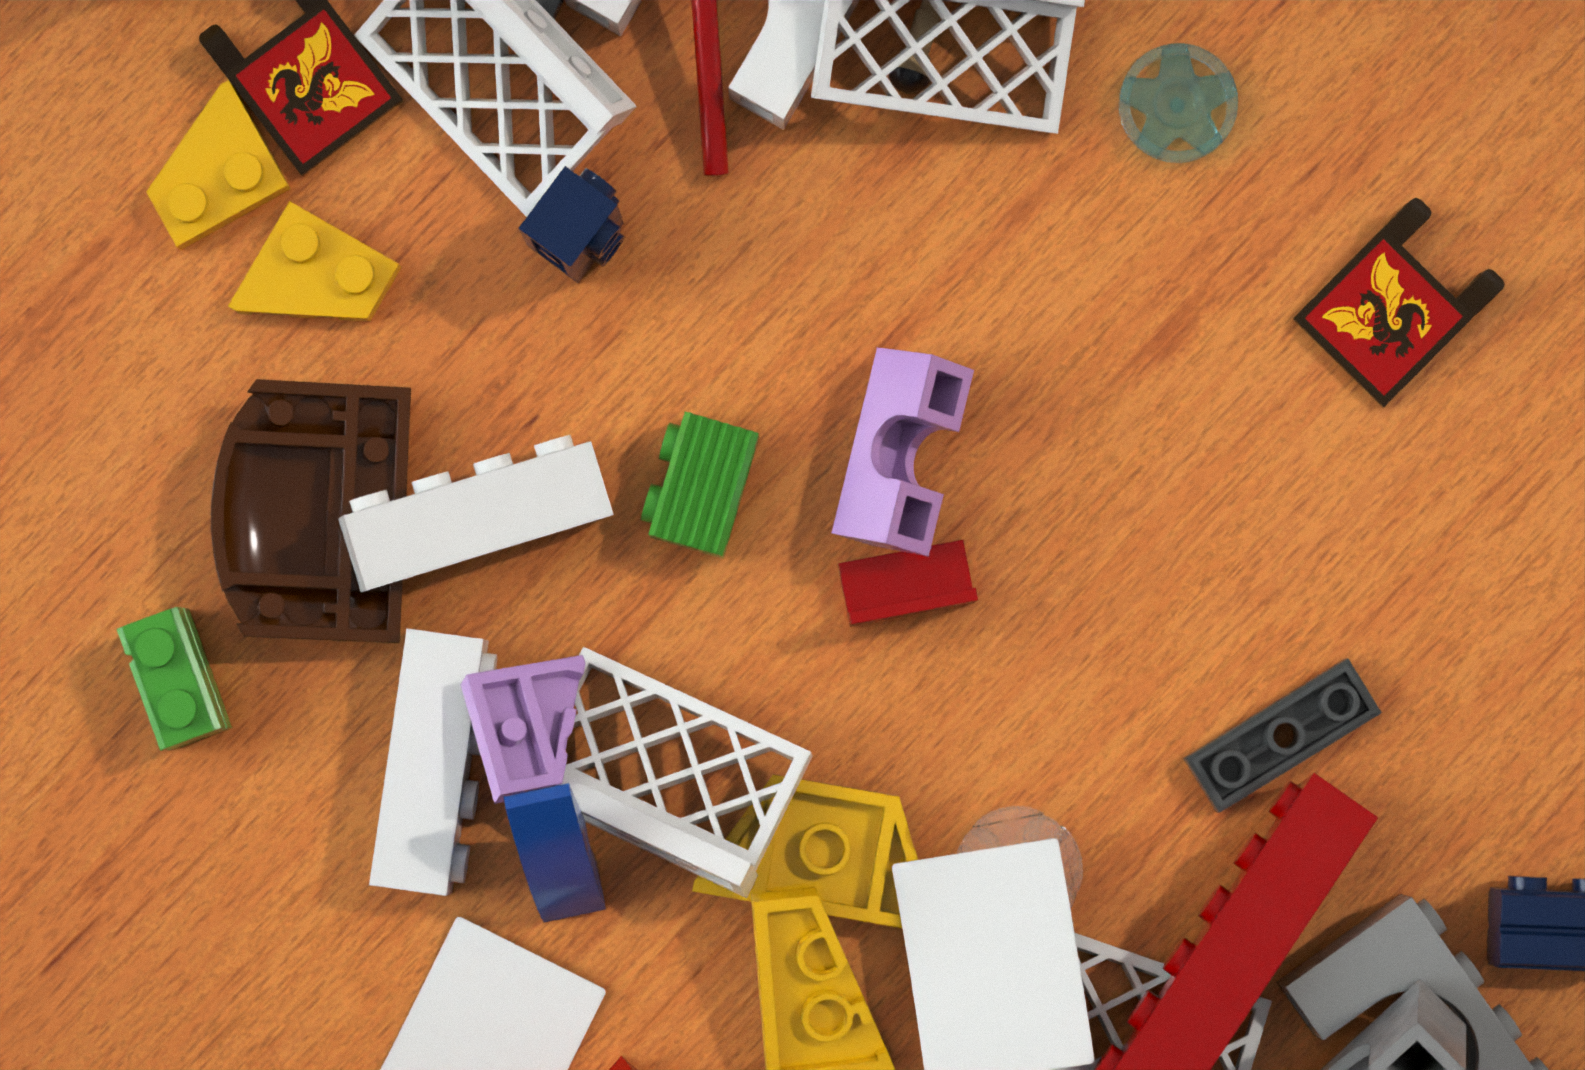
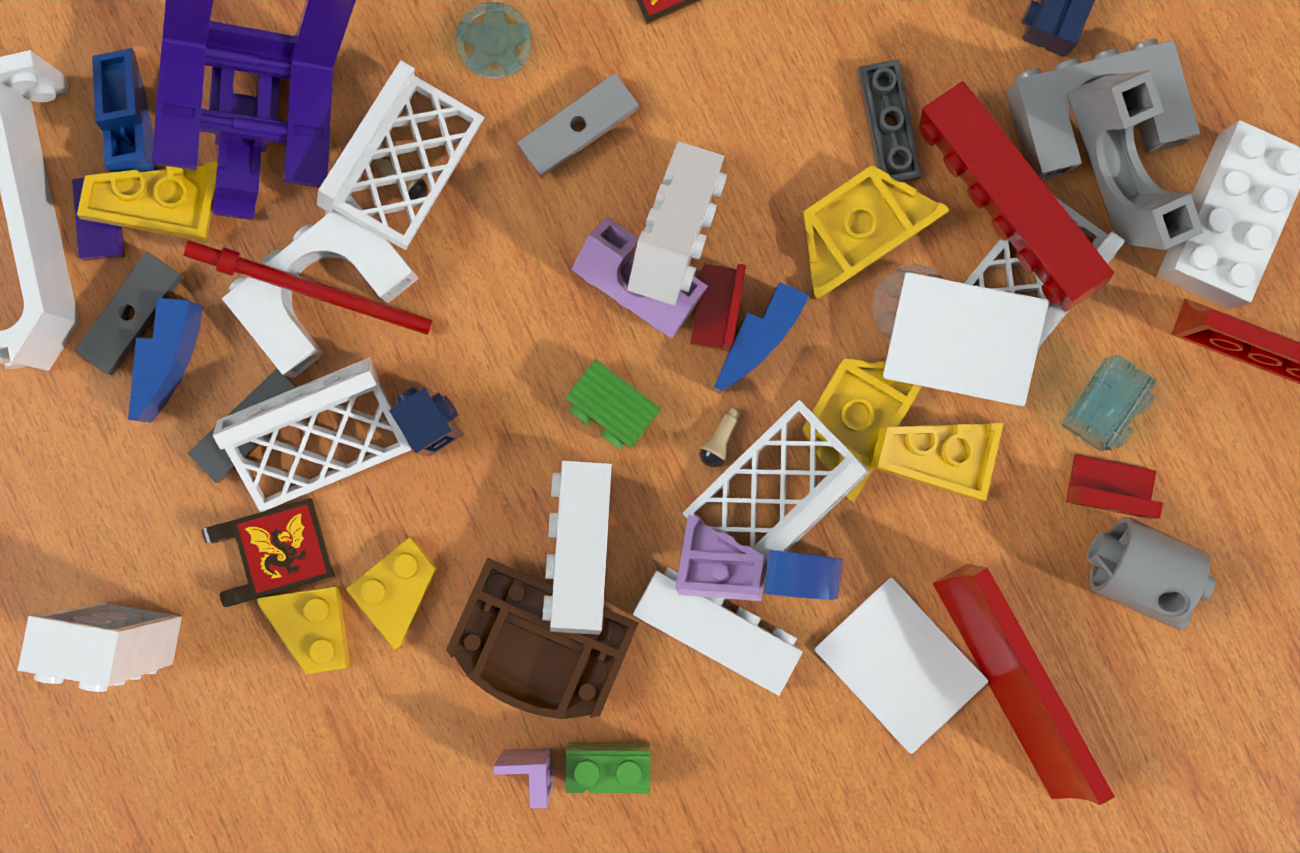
camera: 70 degrees left, 0 degrees up
(134, 580) = (538, 765): none -> lavender panel
(692, 659) = (714, 451): none -> tan piece
(882, 662) = (761, 335): none -> blue slope
(999, 473) = (676, 223): none -> white wedge
(1108, 751) = (862, 225): none -> yellow wing
(1131, 299) = (597, 110): none -> light grey tile

